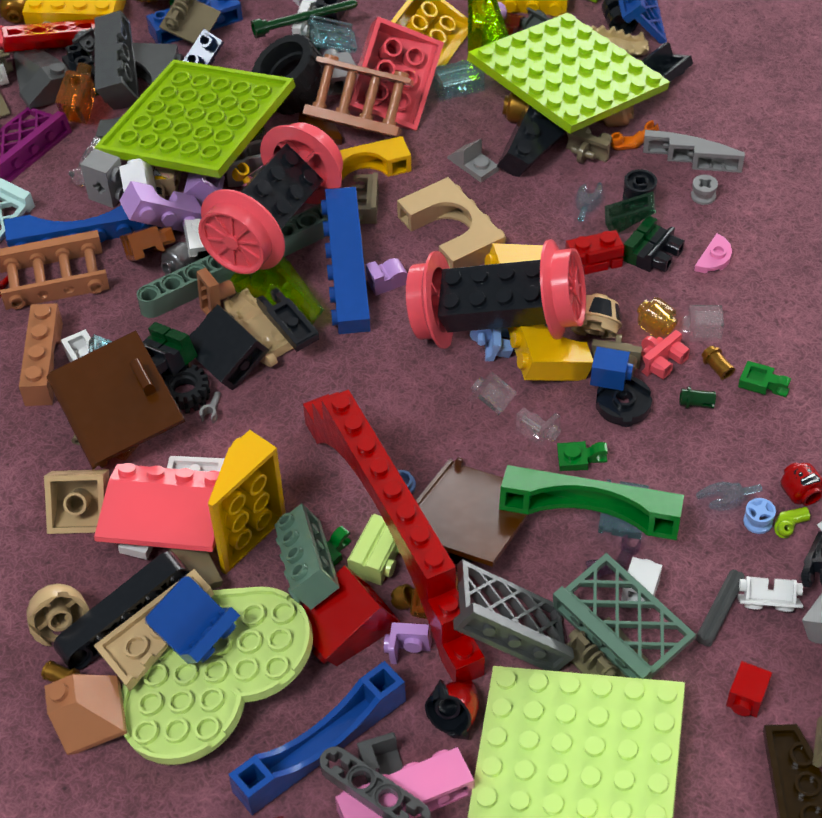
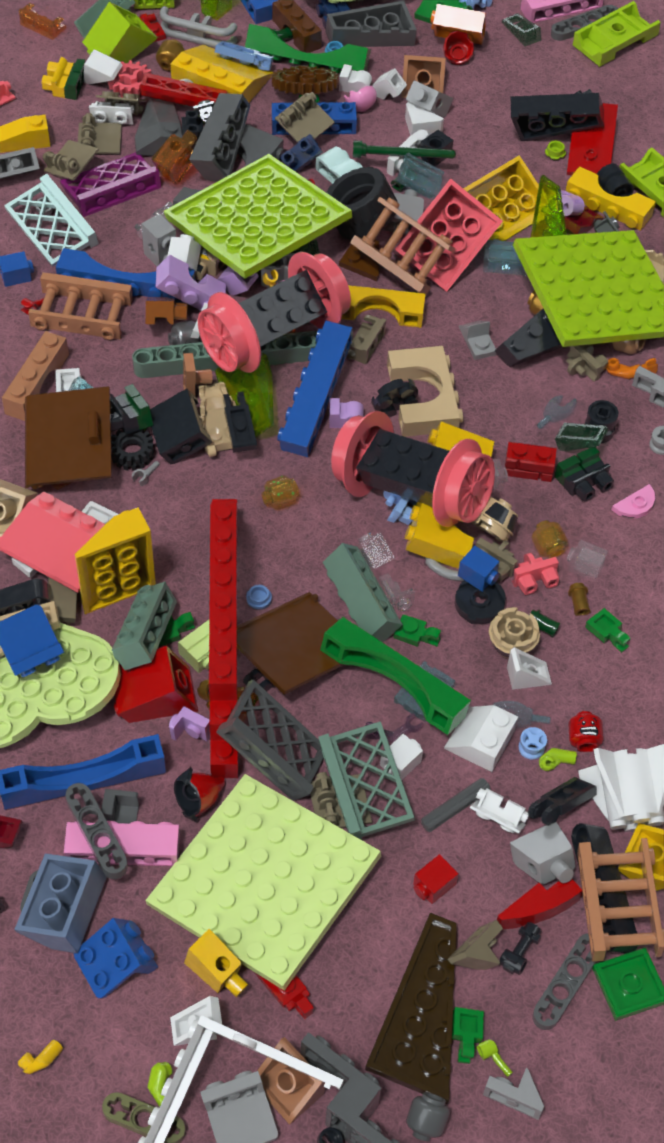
camera: 20 degrees right, 5 degrees up
(241, 52) = (335, 164): none -> light aqua brick
(364, 373) = (280, 492): none -> clear yellow head
(428, 238) = (395, 394): none -> black plate
(504, 435) = (361, 592): none -> sand green brick
(571, 388) = (442, 571): none -> light grey piece
(680, 417) = (512, 630): none -> tan cone
(708, 528) = (483, 735): none -> white slope
(709, 449) = (527, 670): none -> white slope

